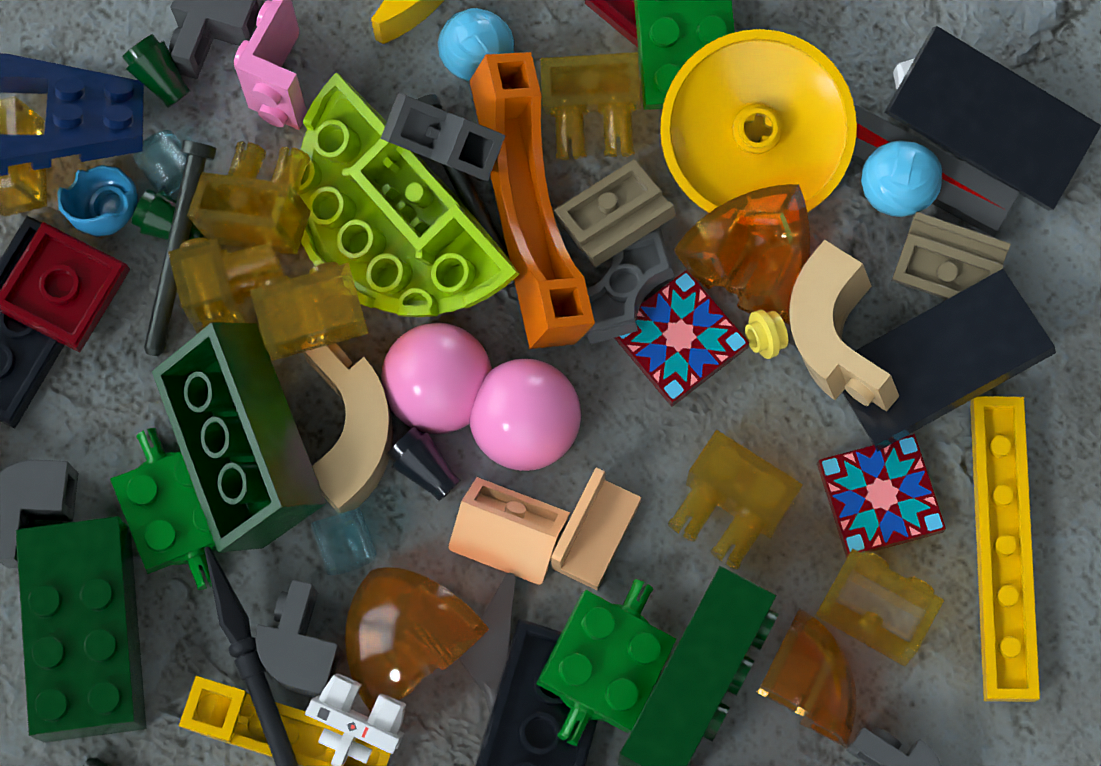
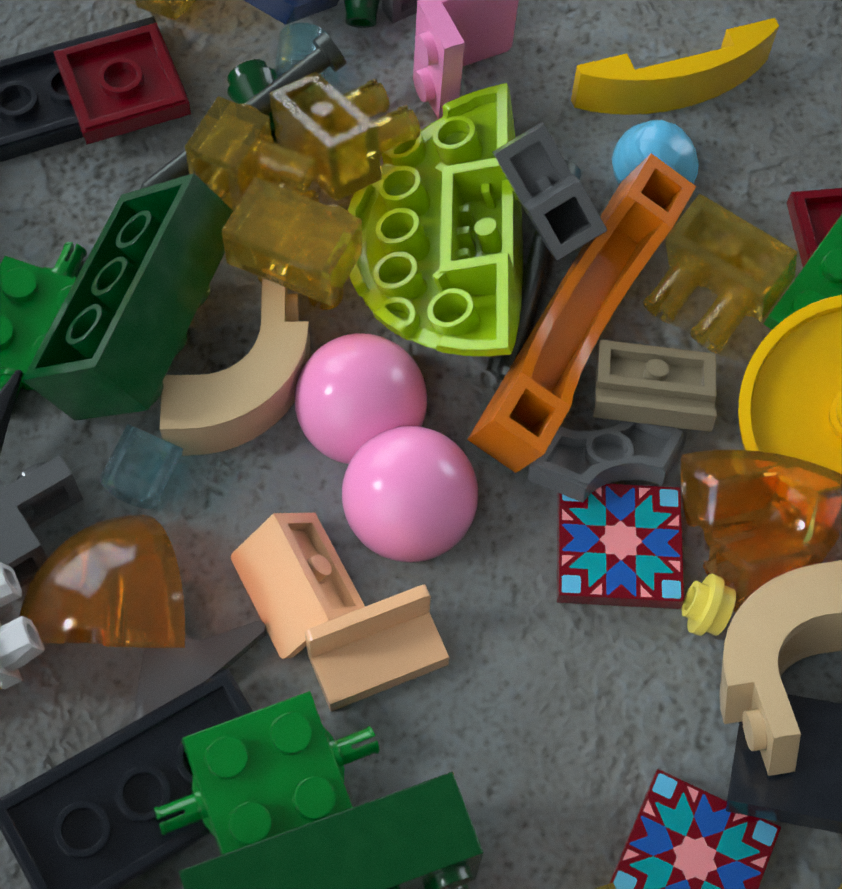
camera: 35 degrees right, 10 degrees down
(99, 200) = (215, 43): dark azure hair -> none
(423, 463) = (277, 457): black cone -> none
(741, 485) = (559, 729): clear yellow brick -> none

